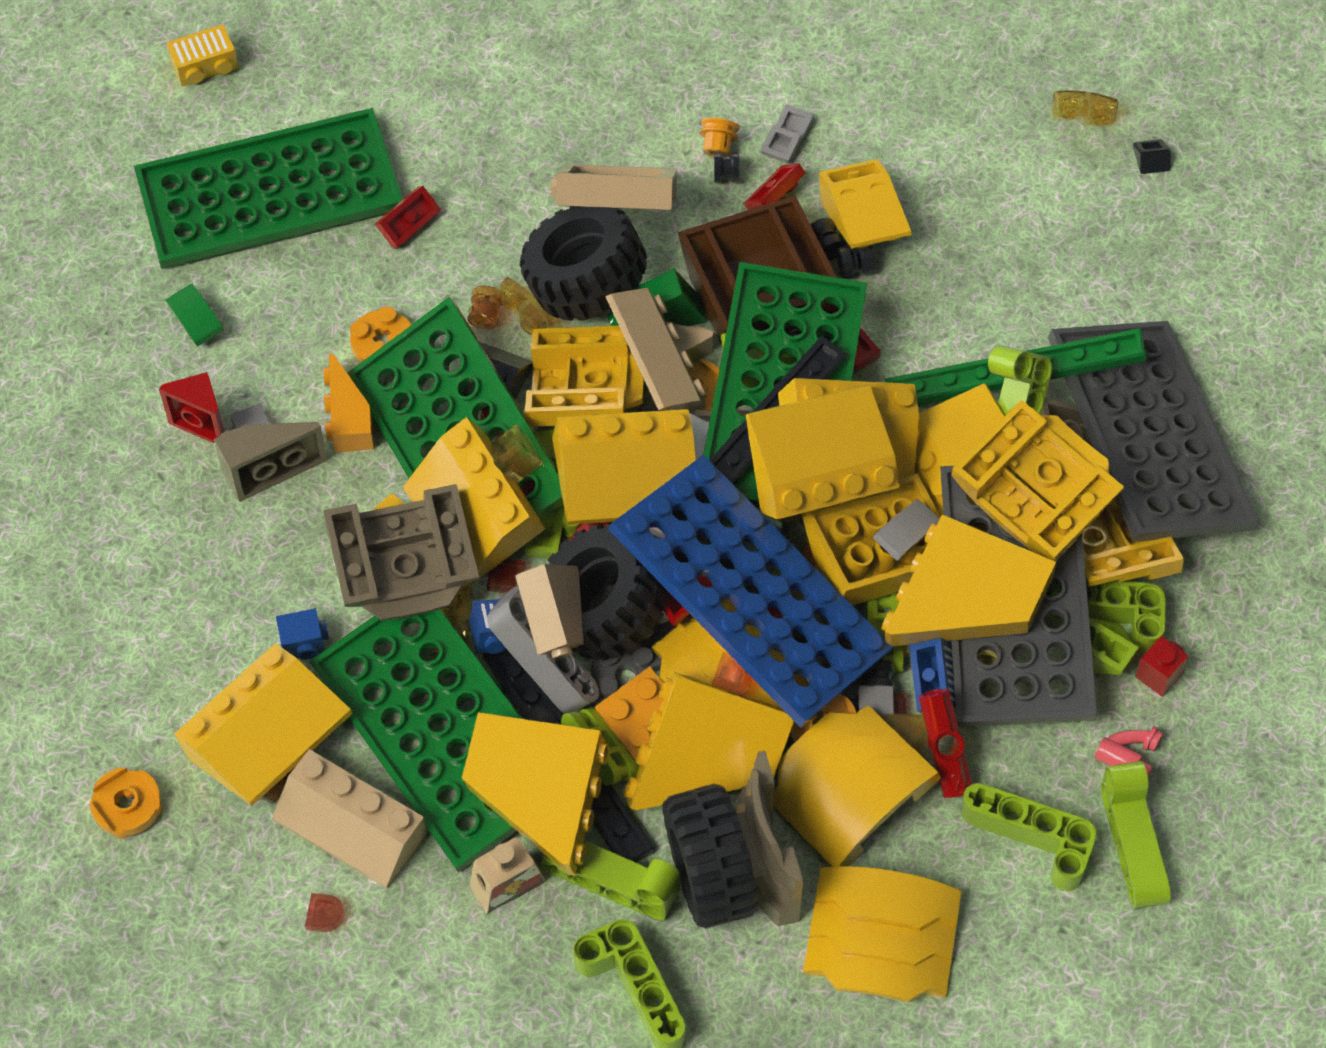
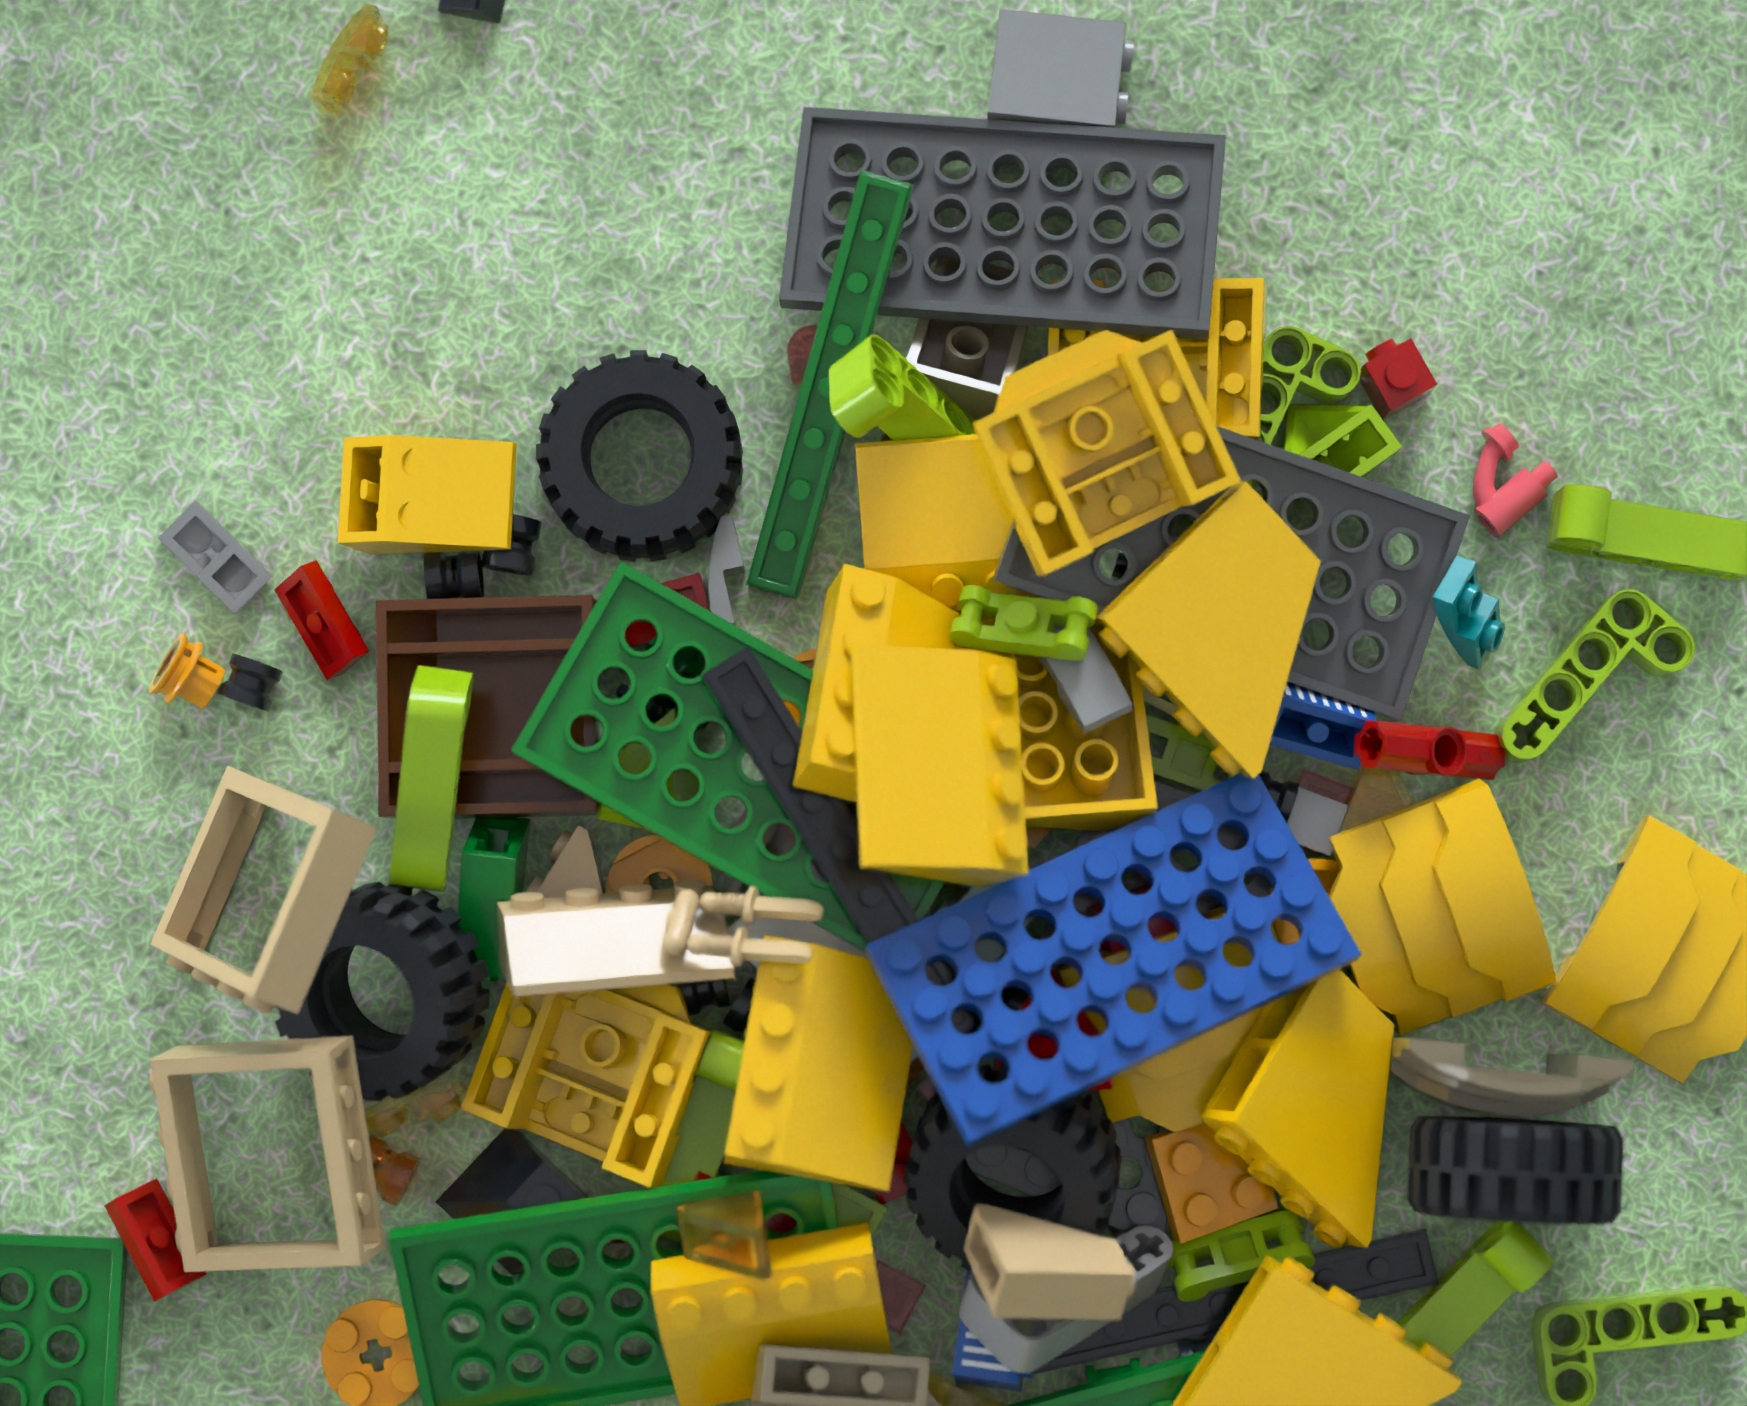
camera: 70 degrees left, 25 degrees up
(488, 263) = (343, 1140): none -> tan window
(678, 372) = (740, 947): none -> tan piece
(711, 236) = (430, 777): none -> lime beam
(731, 676) = (1237, 1036): clear orange tile -> none
(891, 360) = (724, 562): none -> light grey slope
(921, 490) = (1023, 624): none -> lime plate
(923, 331) = (627, 386): none -> black tyre
(1038, 742) = (1467, 614): none -> teal slope
(1255, 435) = (1059, 70): none -> light grey brick

